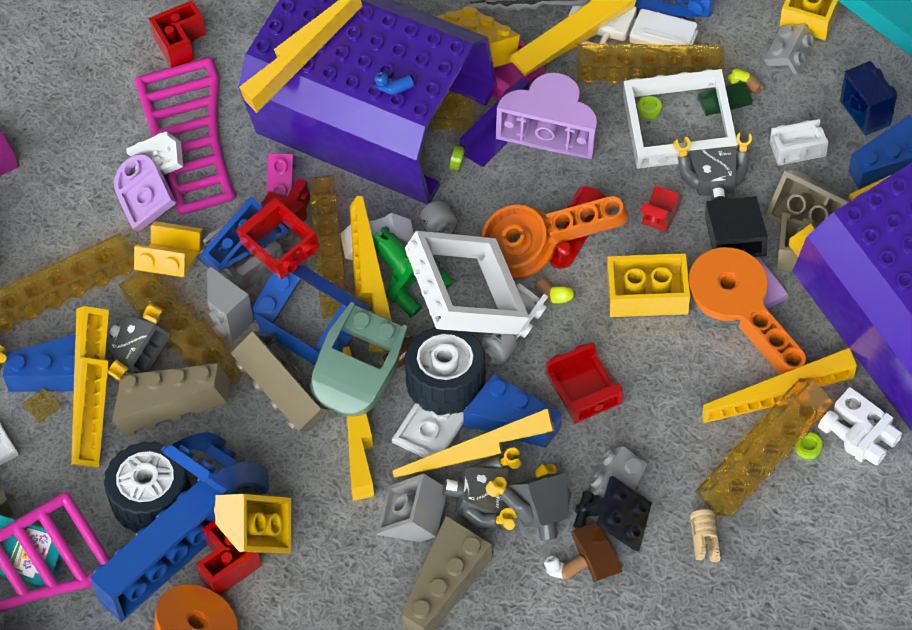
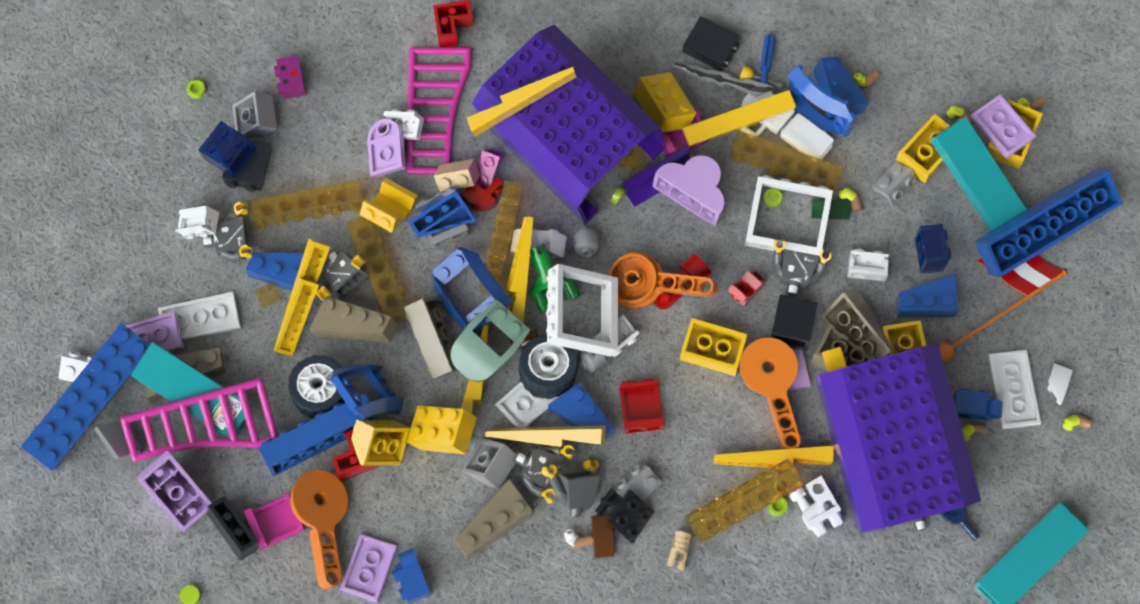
camera: 15 degrees right, 15 degrees up
(228, 306) = (413, 265): light grey slope -> none
(252, 183) = (457, 174): none -> tan brick
(263, 223) = (459, 213): red window -> none
(333, 484) = (441, 429): none -> yellow brick
(392, 86) = (574, 152): blue arm -> none
(555, 294) = (647, 329): neon yellow arm -> none

